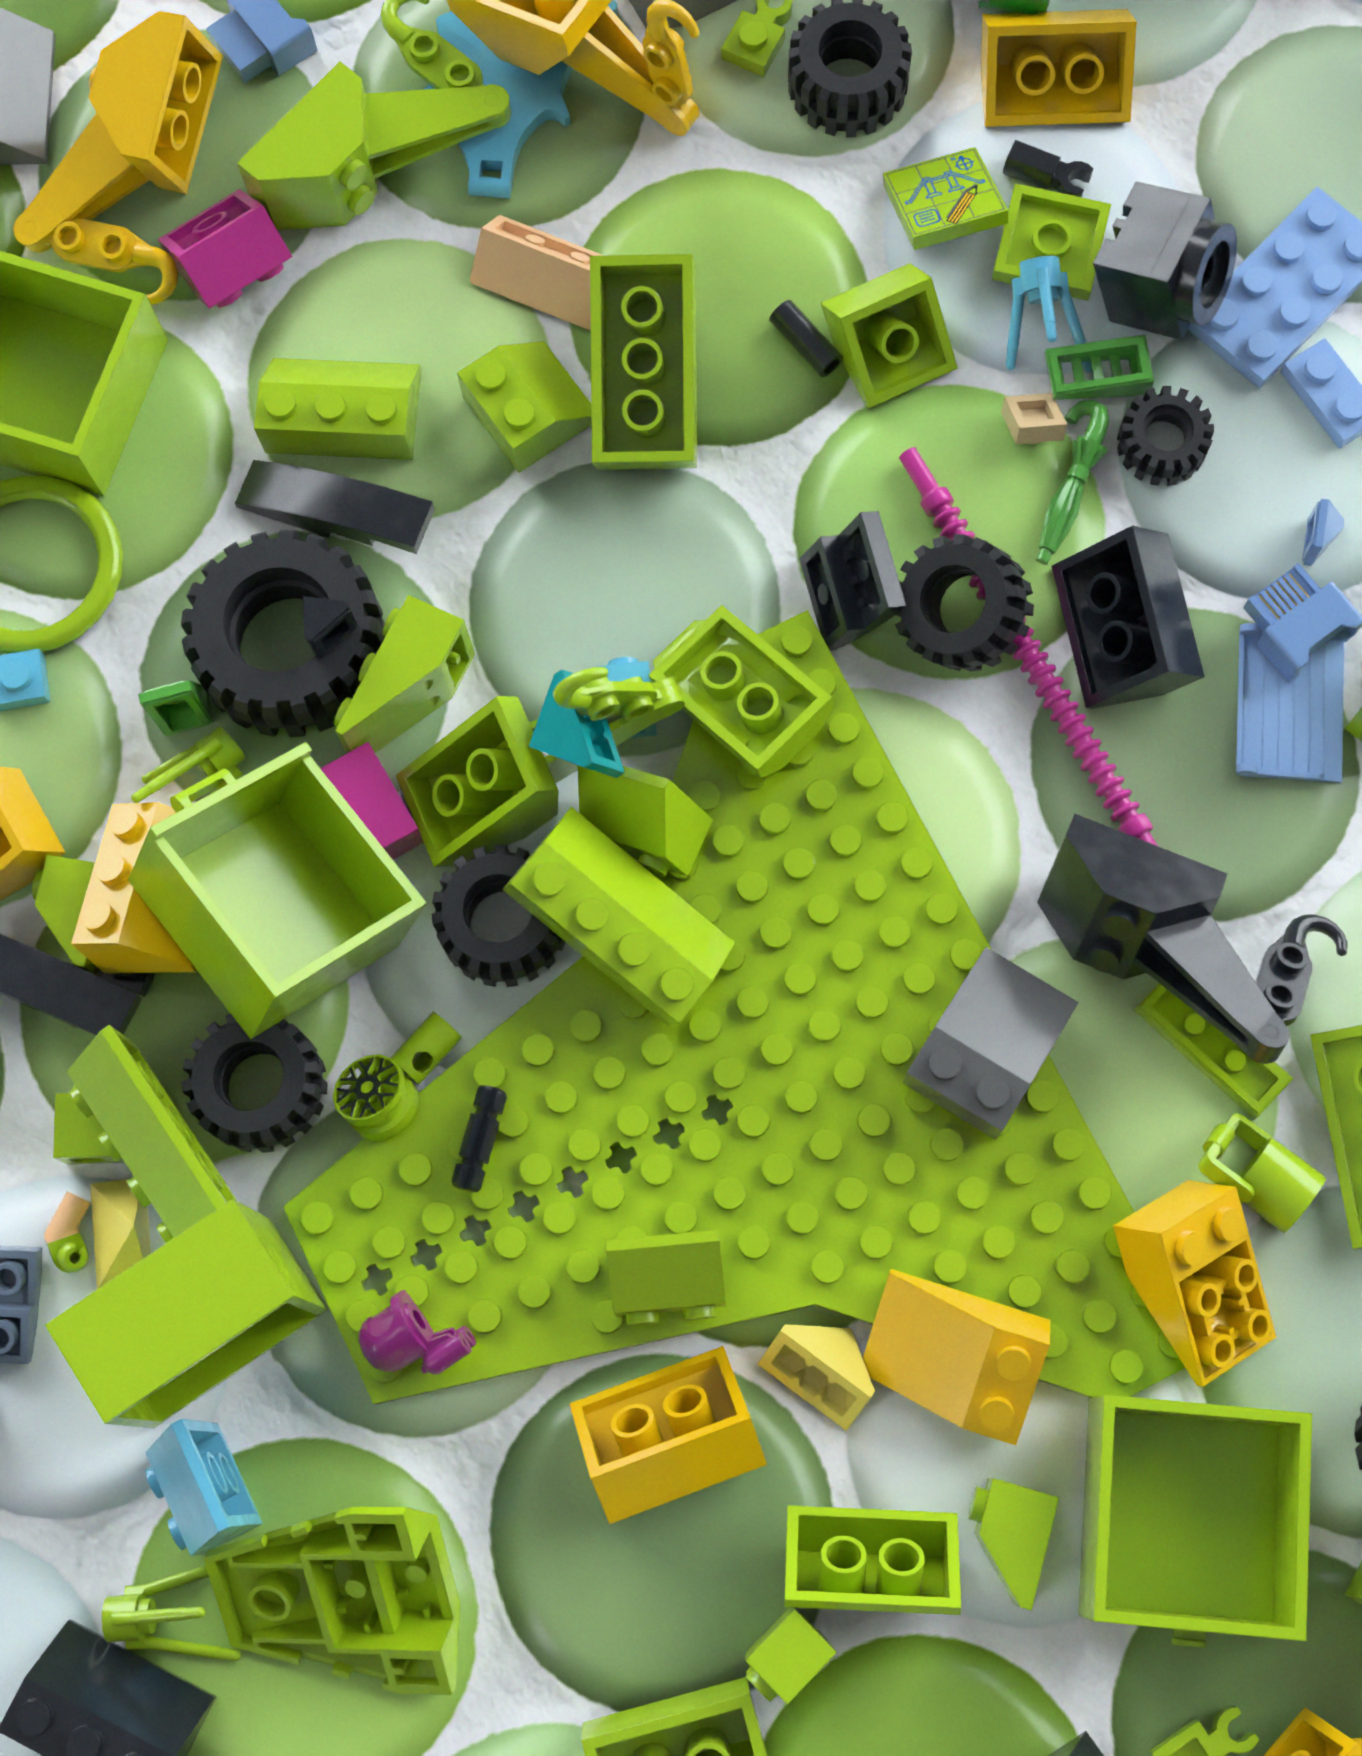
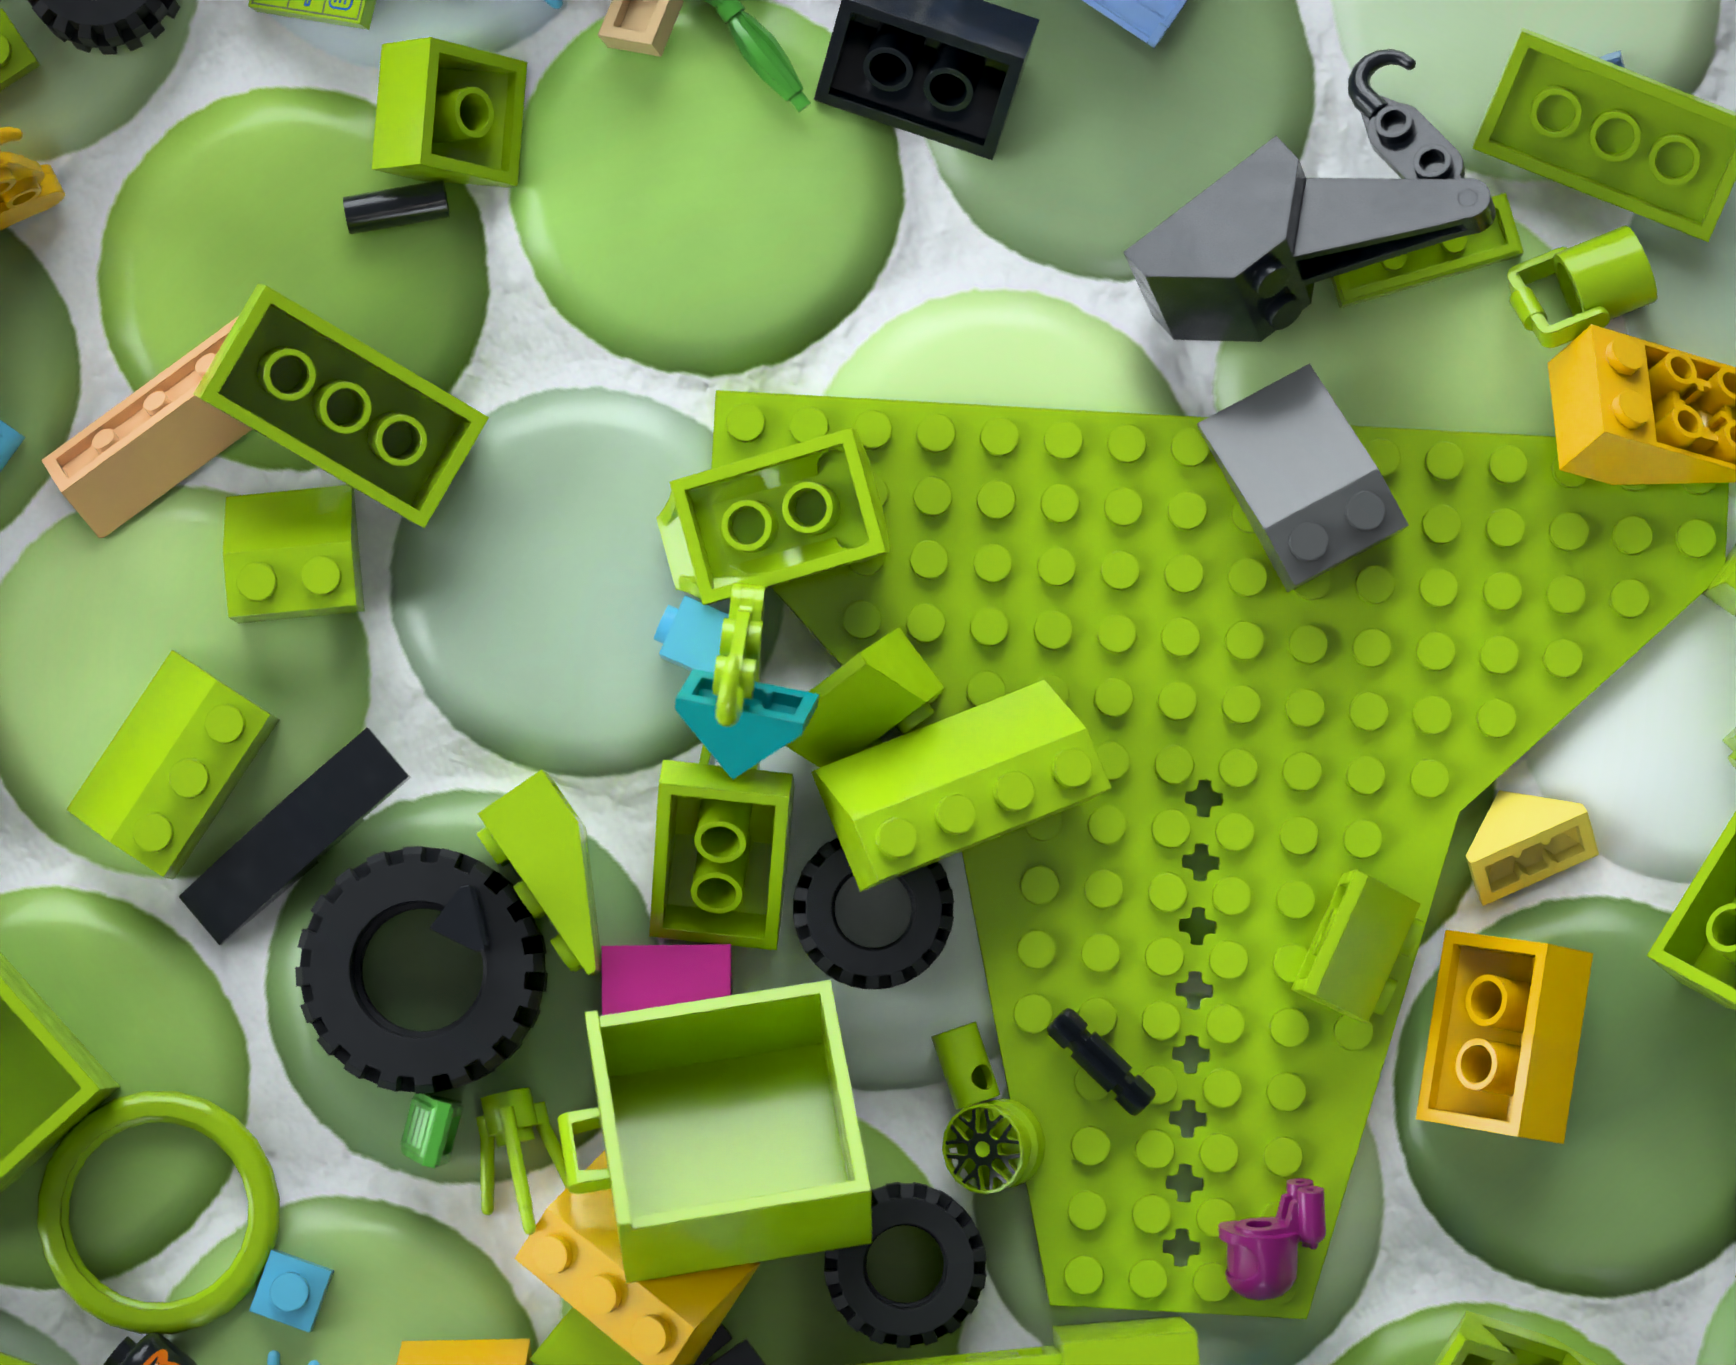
camera: 70 degrees left, 10 degrees up
(852, 581) = (718, 325): black slope -> none
(938, 503) = (675, 178): dark pink hose -> none
(957, 1354) = (1594, 699): yellow slope -> none
(1003, 609) = (806, 275): black tyre -> none

